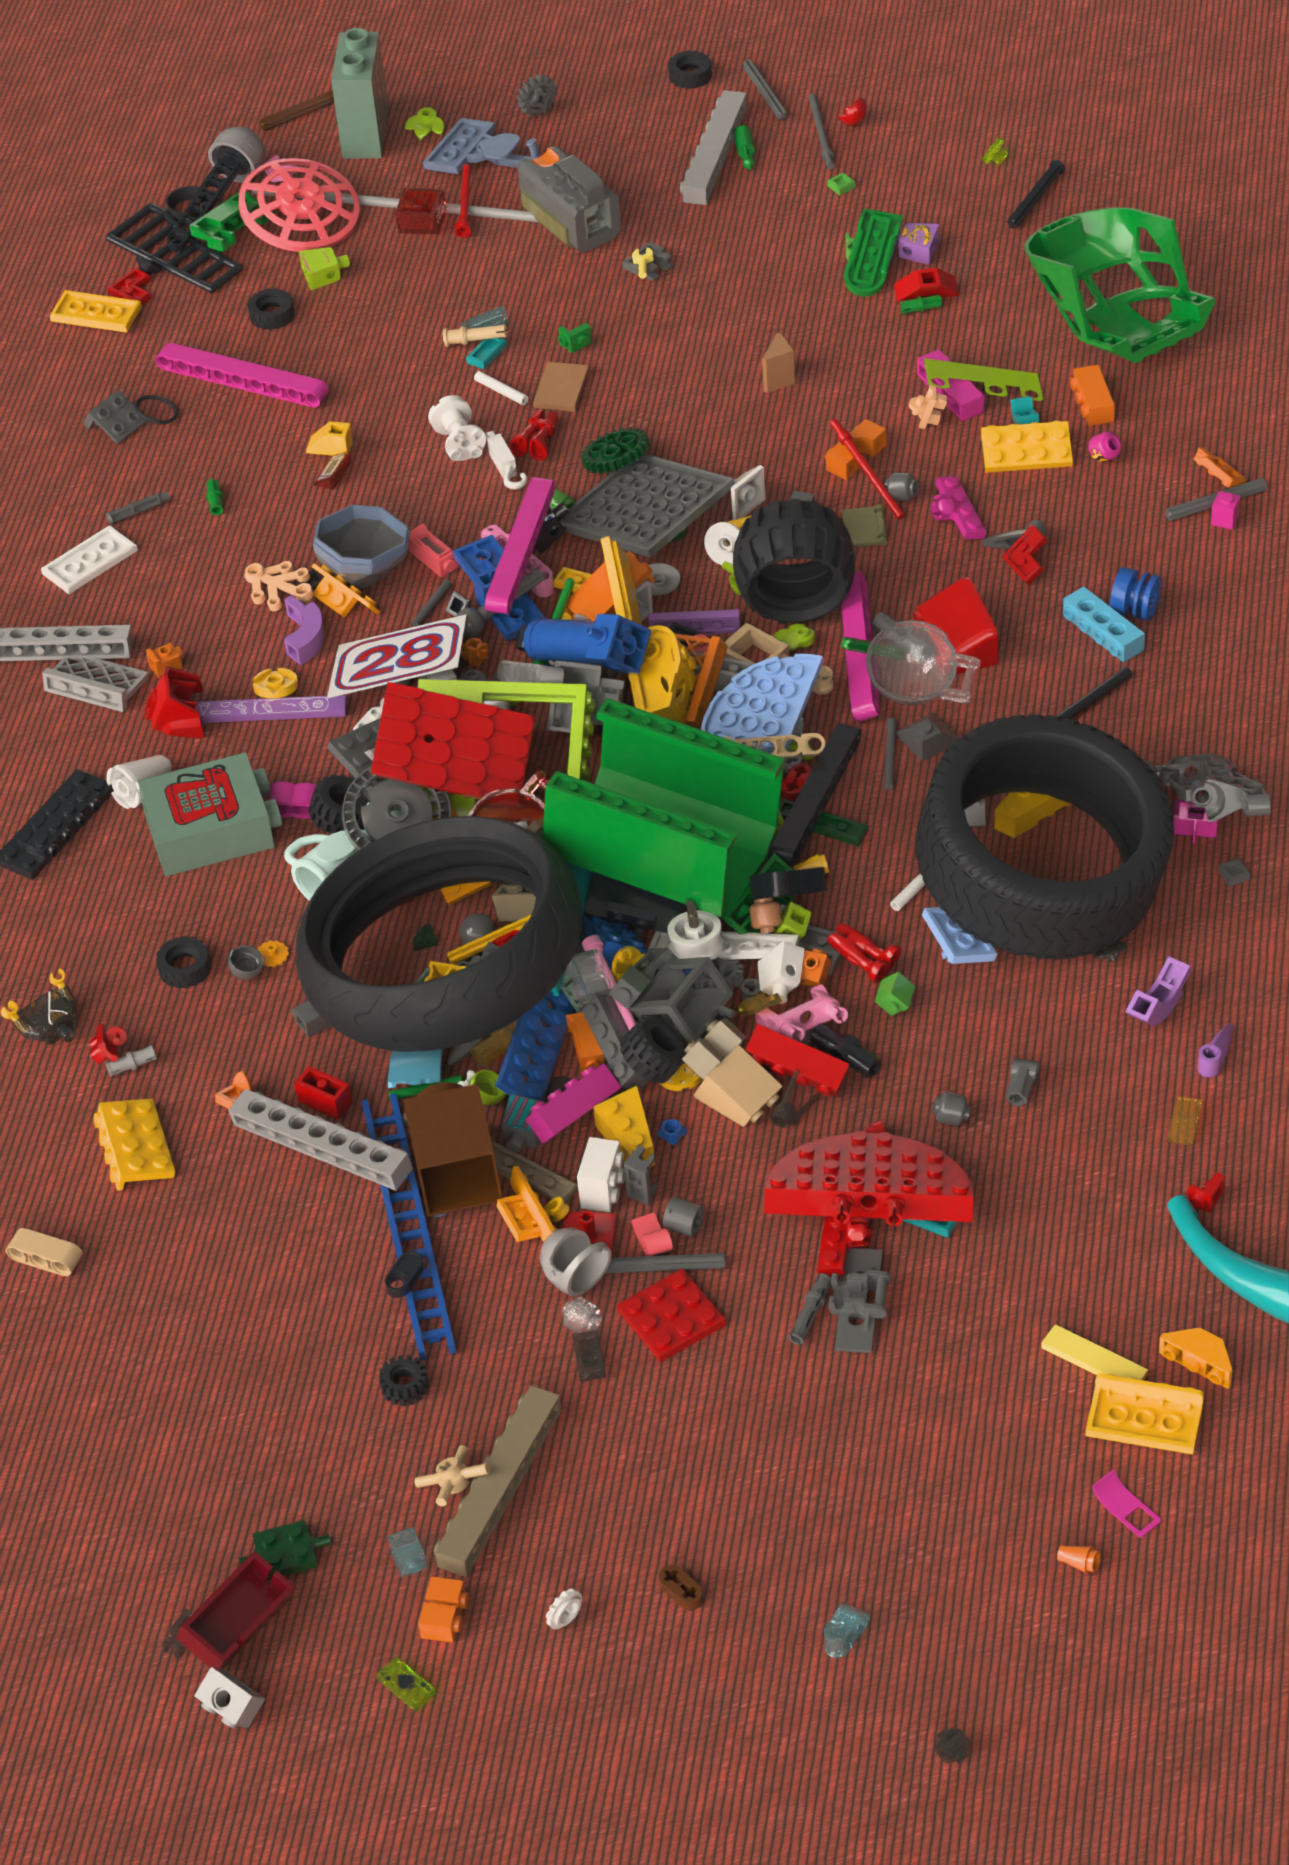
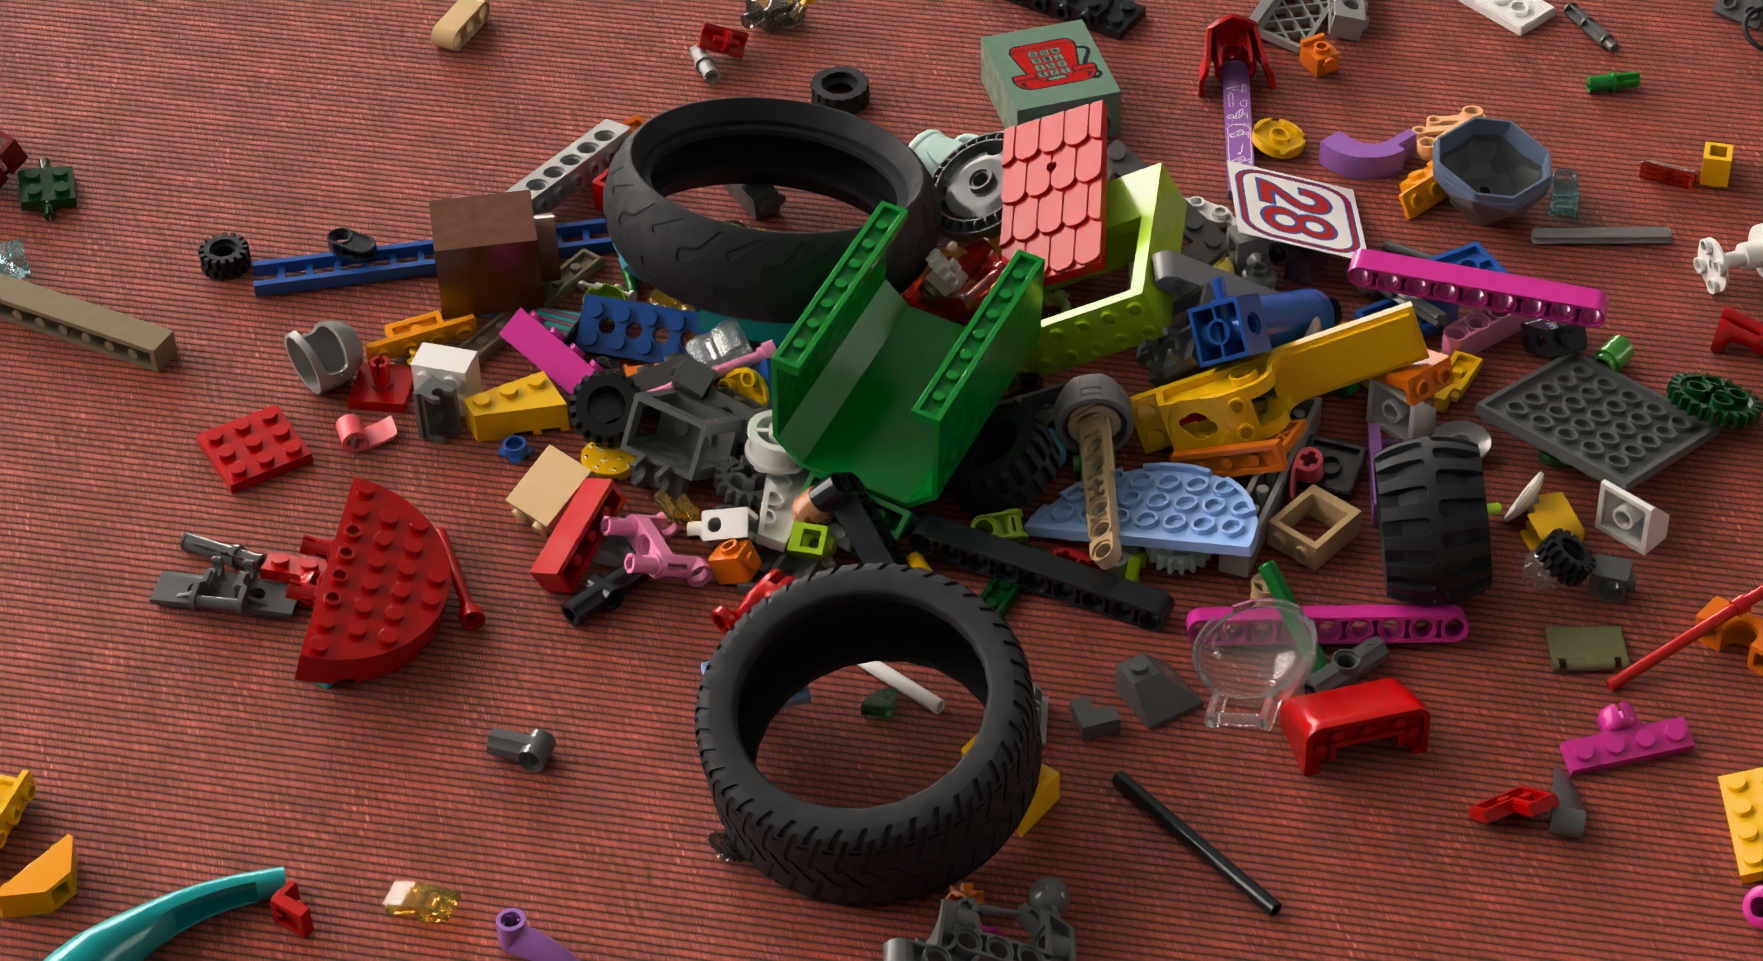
camera: 90 degrees right, 5 degrees down
(125, 778) = (1119, 41): white cone -> none
(133, 1141) = (591, 70): yellow bracket -> none
(410, 508) = (1602, 235): none -> light grey axle
(431, 551) = (1520, 246): coral window -> none
(452, 1475) = (83, 283): tan bar -> none
(474, 651) = (1328, 283): orange gear -> none
(504, 460) = (1695, 306): white piece -> none
(581, 1315) = (263, 374): clear head -> none
(589, 1355) = (214, 384): clear smoke plate -> none
(667, 1263) = (325, 441): dark grey axle -> none
(683, 1216) = (378, 450): dark grey piece -> none
(708, 1052) = (604, 458): brick -> none
(784, 1111) = (518, 537): clear smoke plant -> none
(796, 636) = (1353, 570): lime plate -> none
(890, 754) = (1118, 655): dark grey bar -> none
(895, 993) = (680, 633): bright green brick -> none
(902, 486) = (1662, 680): dark grey head -> none
(950, 1108) = (487, 678): dark grey head -> none
(1090, 1355) = (78, 791): light yellow tile -> none
(1103, 624) = (1369, 883): medium azure brick -> none
(1141, 595) = (1417, 910): blue wheel -> none
(1162, 996) = (617, 880): medium lavender arch -> none

